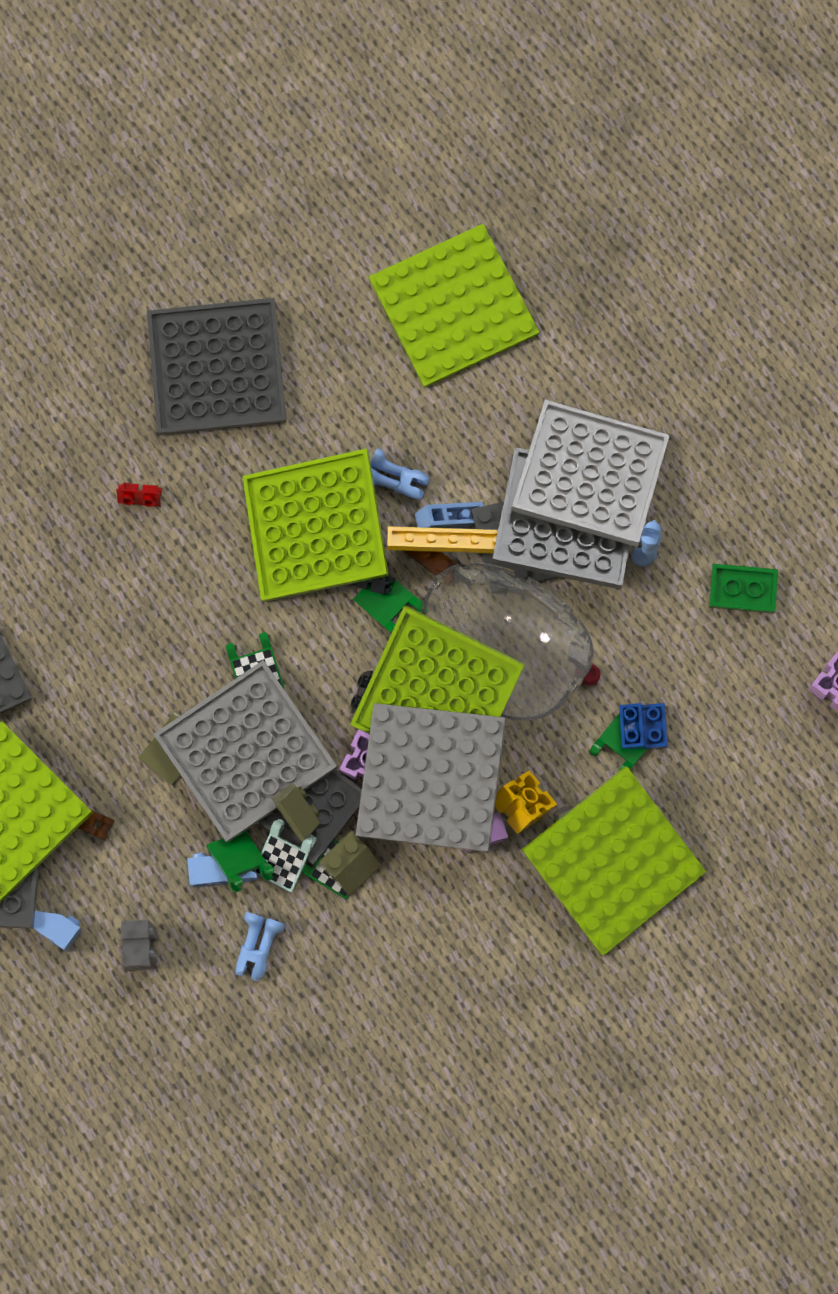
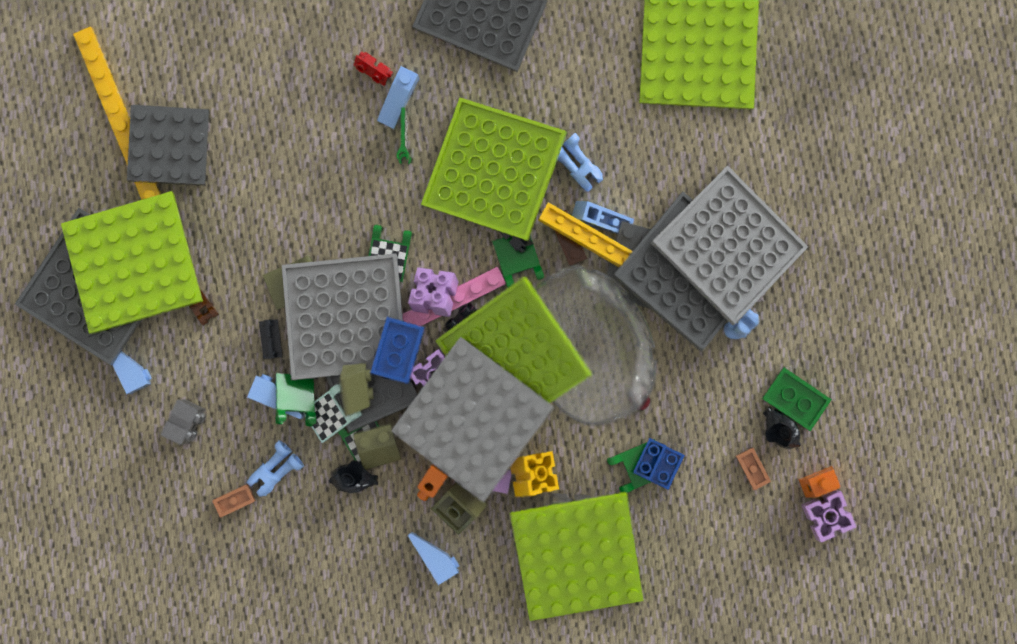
camera: 25 degrees right, 10 degrees up
(180, 508) = (398, 97): none -> light blue slope
(181, 816) = (270, 339): none -> black hinge
(214, 552) = (403, 148): none -> green flag
(232, 1000) = (234, 500): none -> nougat plate
(317, 751) = (397, 350): none -> blue plate
(321, 677) = (433, 292): none -> lavender brick
(342, 909) = (352, 478): none -> black hair
(345, 677) = (465, 293): none -> bright pink plate
(425, 856) = (431, 482): none -> orange torso
(466, 879) = (458, 507): none -> olive slope
(476, 946) = (437, 561): none -> light blue slope
(740, 680) = (753, 468): none -> nougat plate
(745, 626) = (781, 429): none -> black hair
(814, 656) = (820, 483): none -> orange torso

